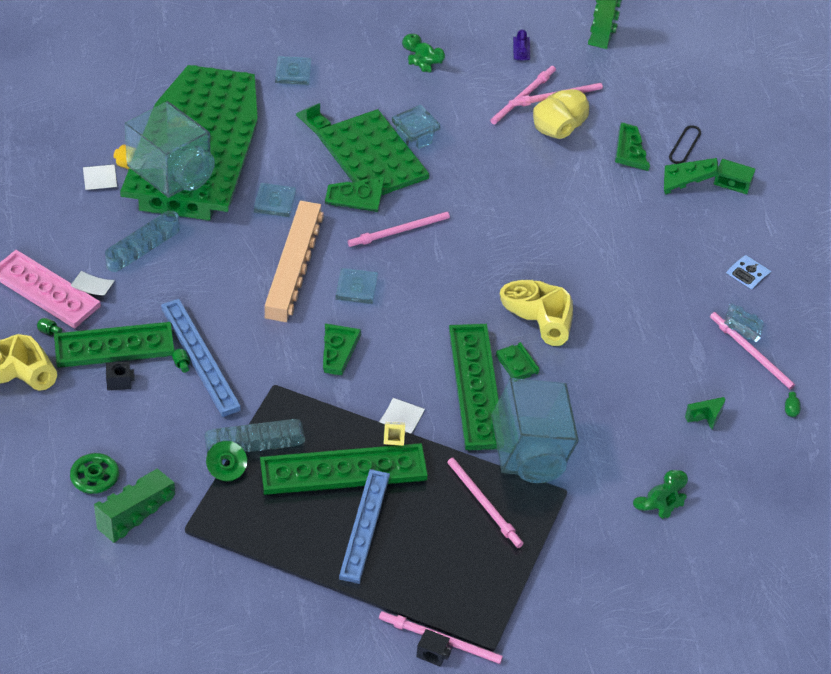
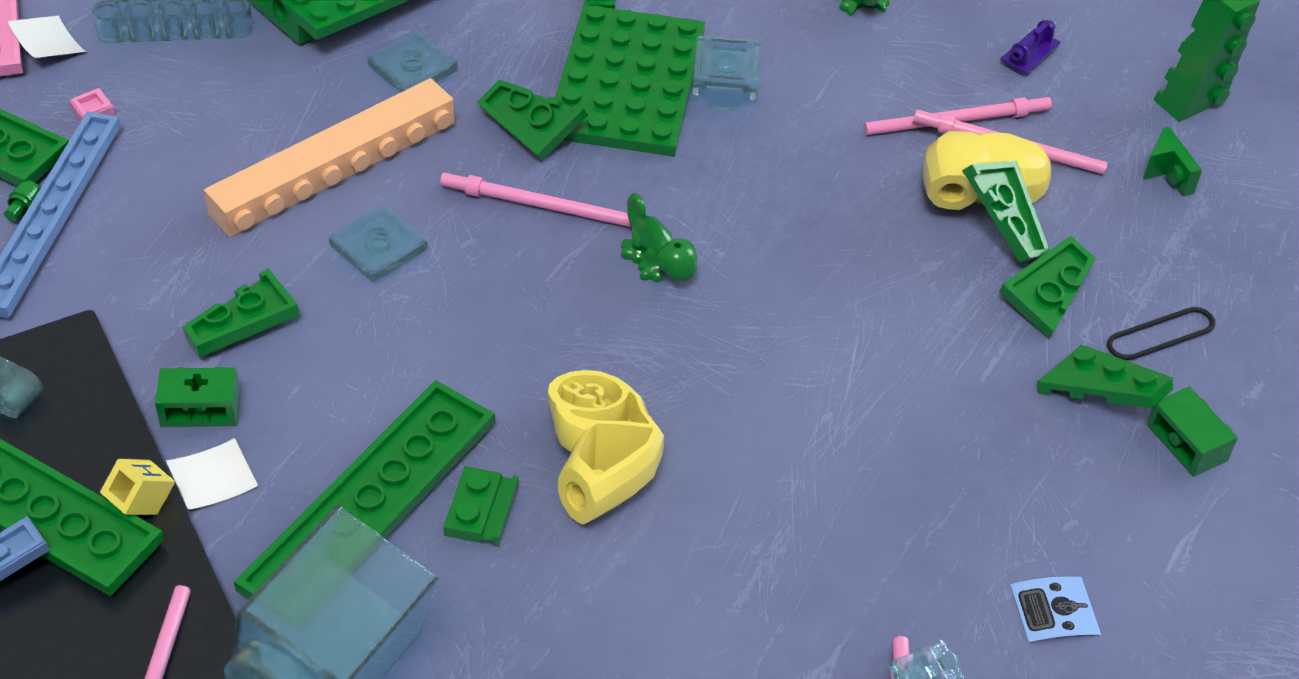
camera: 40 degrees right, 0 degrees up
(153, 303) = (91, 101): none -> bright pink tile
(364, 390) = (197, 397): none -> green brick
(469, 218) = (654, 246): none -> green animal
(593, 123) = (1010, 206): none -> green wing
(624, 67) = (1175, 161): none -> green slope

